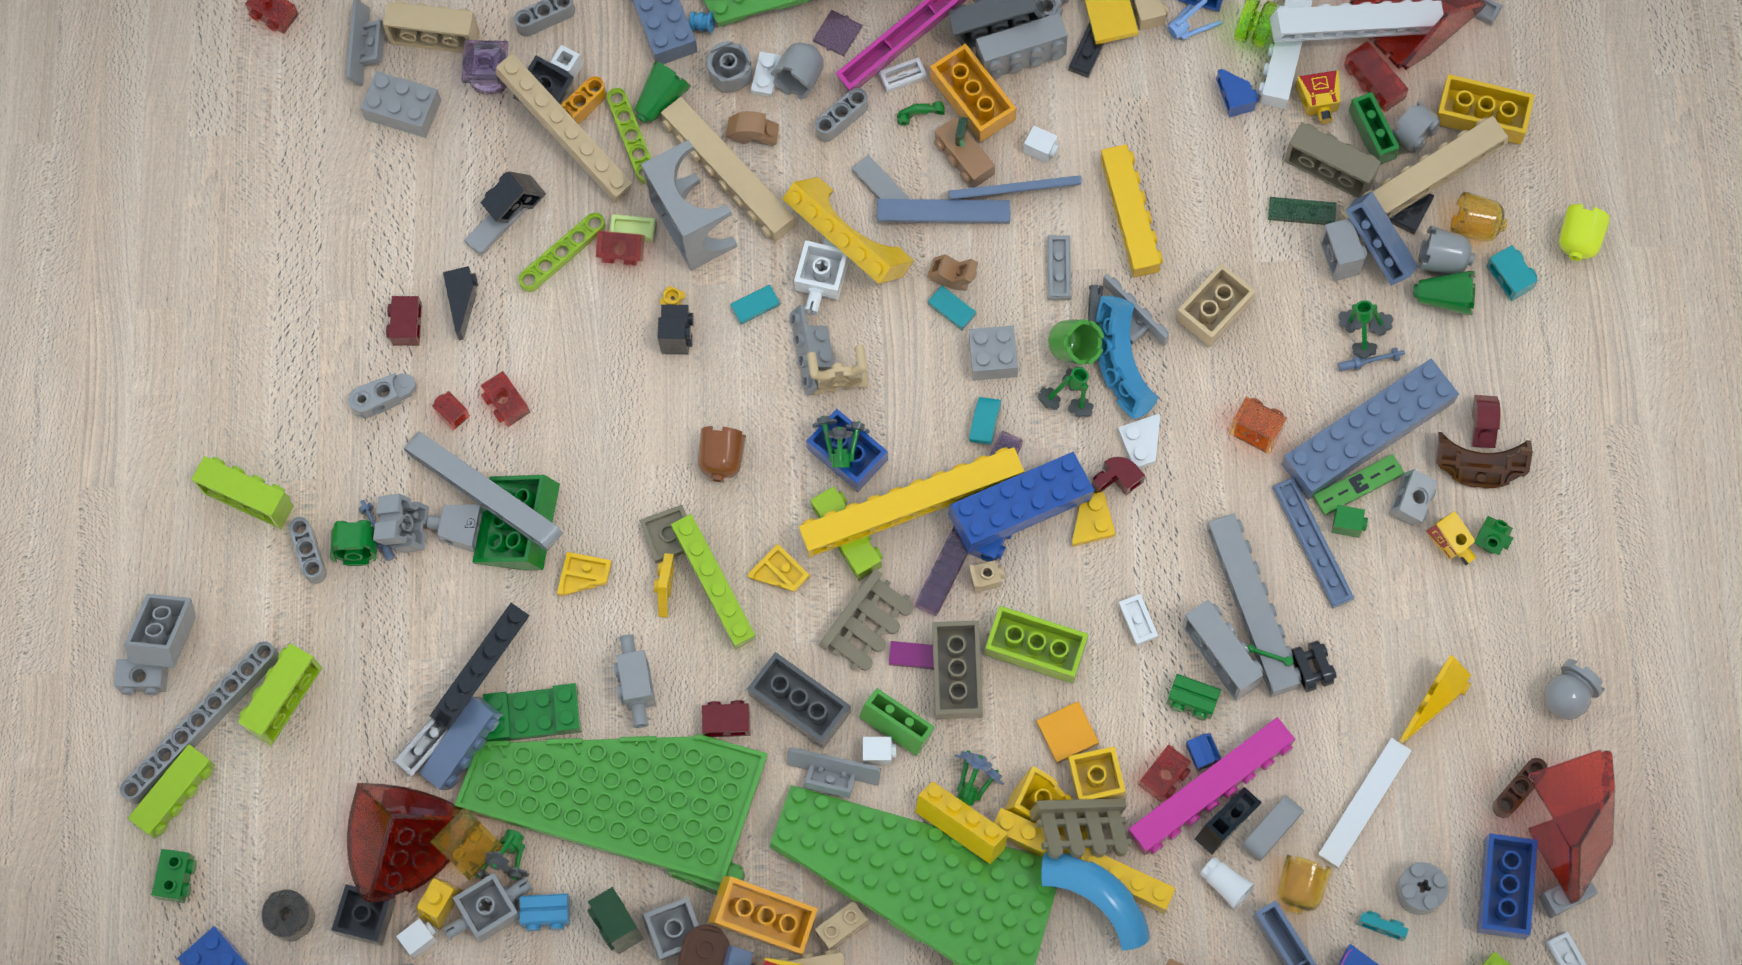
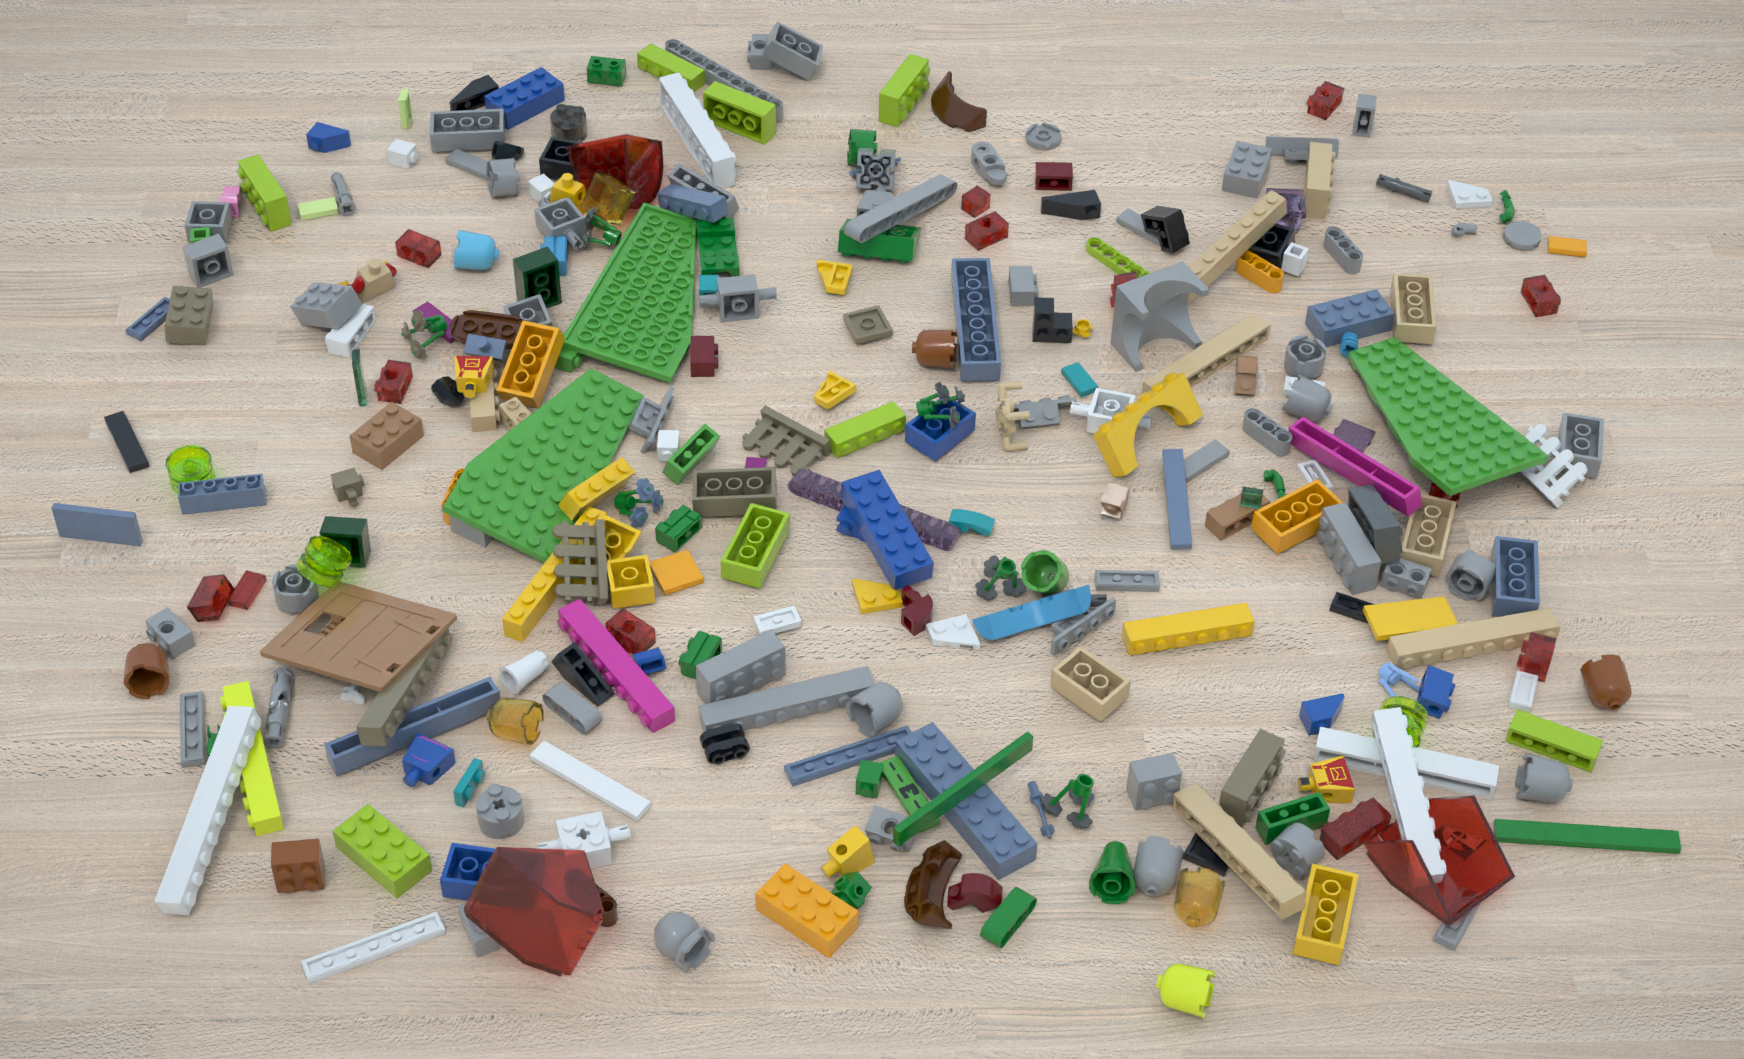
camera: 85 degrees right, 25 degrees down
(266, 442) = (955, 111): none -> reddish brown windscreen
(304, 540) = (869, 122): light grey beam -> none
(314, 746) = (697, 130): none -> white brick
(322, 333) = (1043, 136): none -> light grey tile
(479, 666) = (754, 206): black brick -> none
(603, 360) = (1022, 285): none -> light grey brick
(607, 719) = (707, 284): none -> teal brick
(627, 126) = (1228, 310): lime beam -> none
(659, 92) = (1280, 314): green cone -> none
(664, 584) = (822, 318): yellow wing -> none
(665, 410) = (975, 319): none -> sand blue brick
(713, 581) = (821, 343): lime brick -> none
(799, 700) = (715, 394): dark grey brick -> none
(908, 502) = (887, 455): yellow brick -> none
(952, 307) = (1082, 505): teal tile -> none
(983, 583) = (822, 517): tan brick -> none
(993, 353) = (1036, 526): light grey brick -> none
(1006, 732) = (678, 528): none -> green brick
(1014, 187) = (1205, 547): sand blue tile -> none
(1041, 144) = (1251, 566): white brick -> none
(1104, 891) = (517, 573): dark azure brick -> none
(1258, 424) = (965, 706): clear orange brick -> none
(1263, 512) = (875, 708): none -> light grey cylinder
(1288, 661) = (727, 715): green hinge -> none
(1301, 211) = (1200, 762): clear green tile -> none
(1381, 238) = (1165, 804): sand blue brick -> none
(1383, 421) = (962, 789): none -> green tile
(1445, 689) = (692, 836): yellow wedge -> none
(1459, 786) = (587, 834): none -> white brick
(1510, 392) = (1008, 917): none -> green beam
(1512, 272) = (1140, 930): teal brick -> none
(1518, 576) = (807, 910): none -> light orange brick

